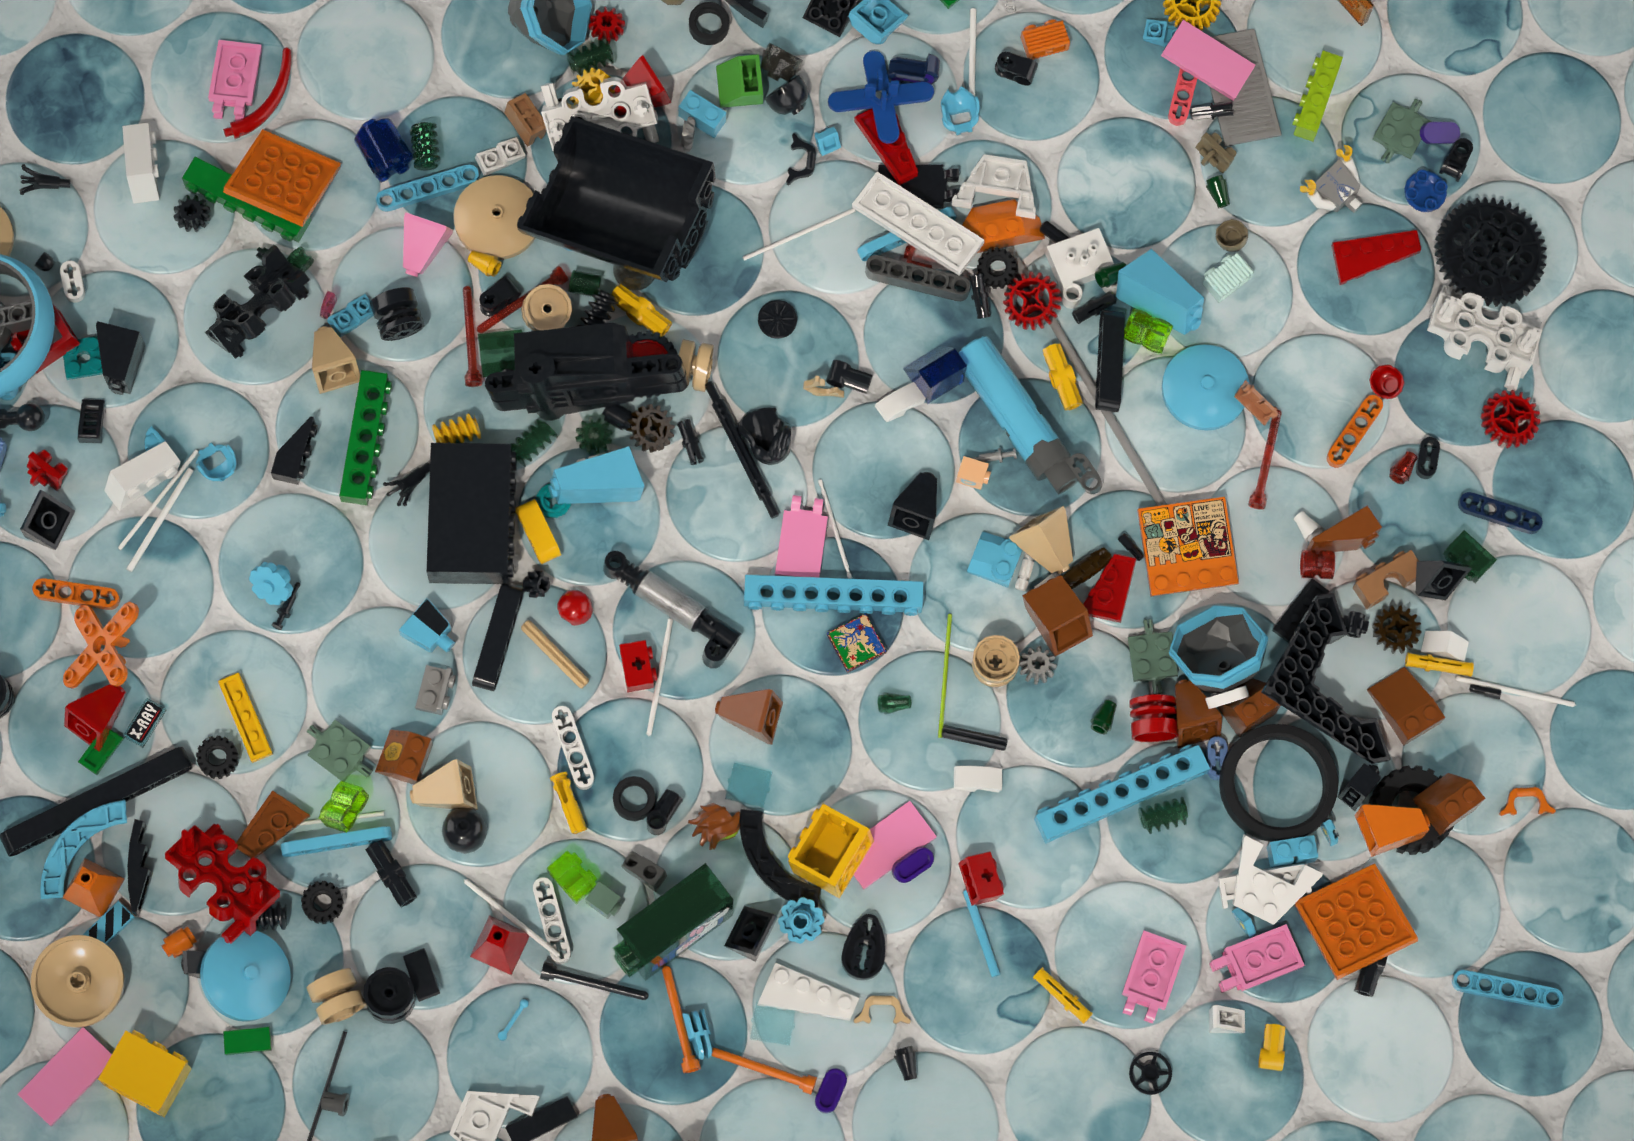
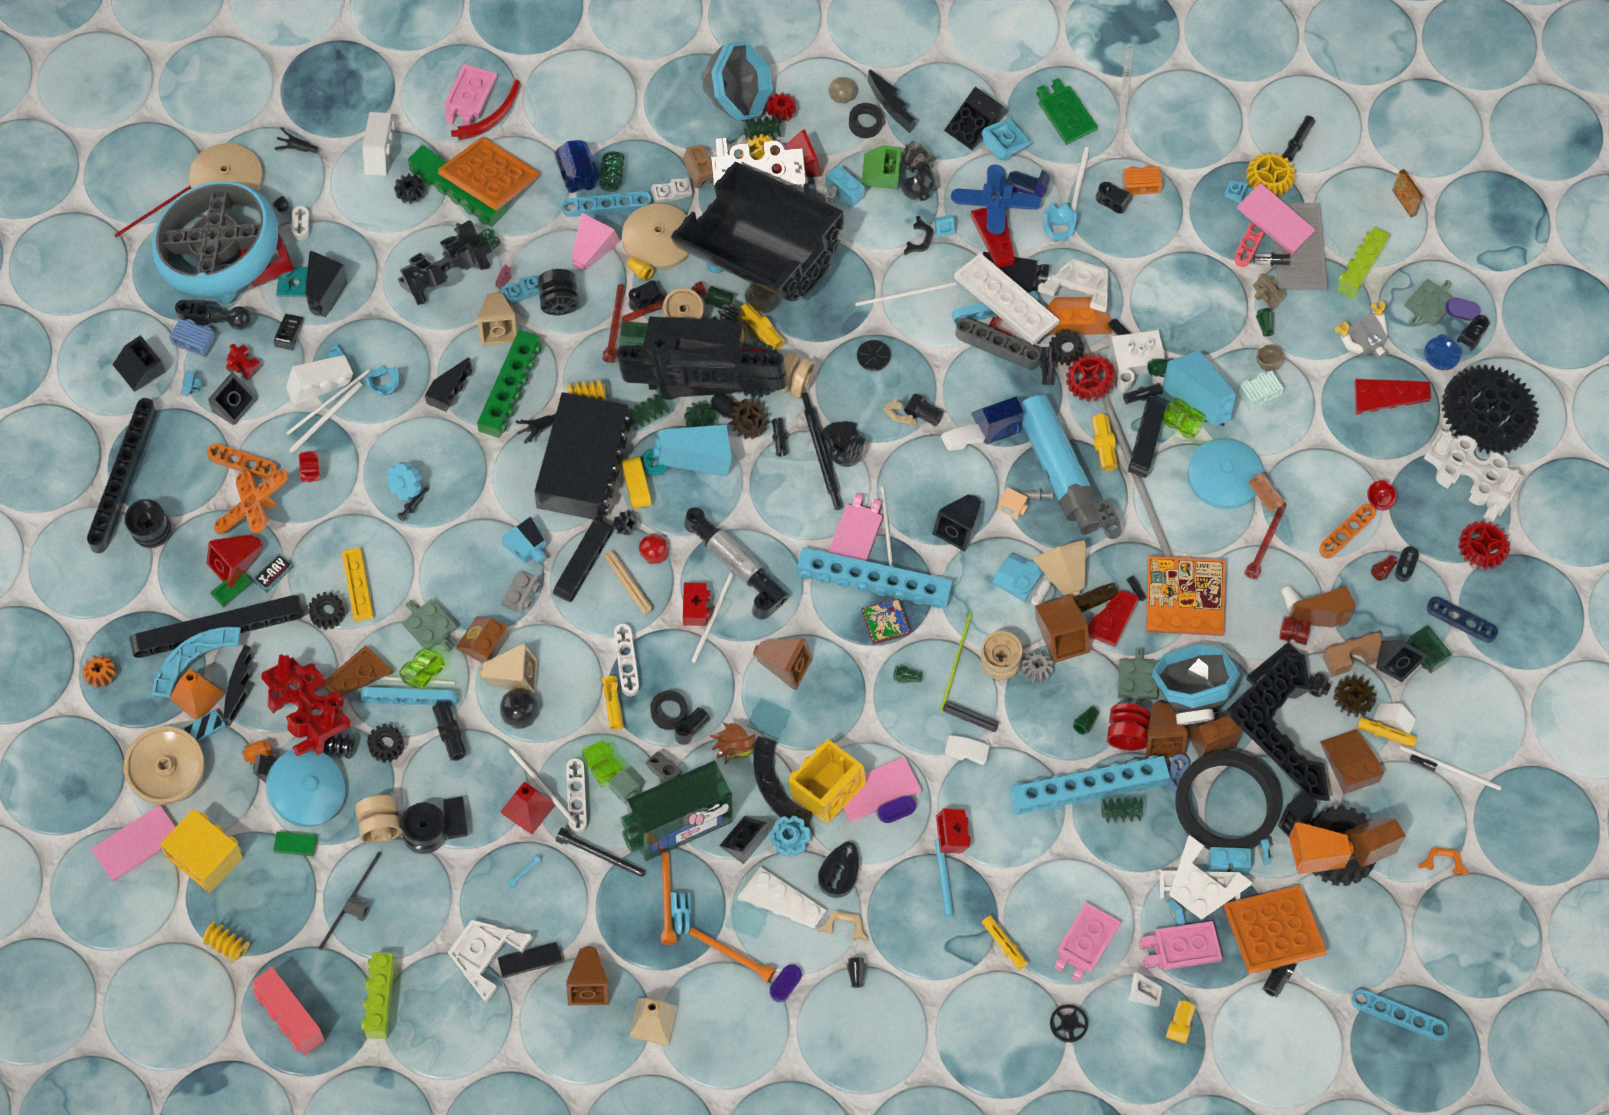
camera: 15 degrees right, 10 degrees down
(156, 586) = (309, 466): none -> red gear

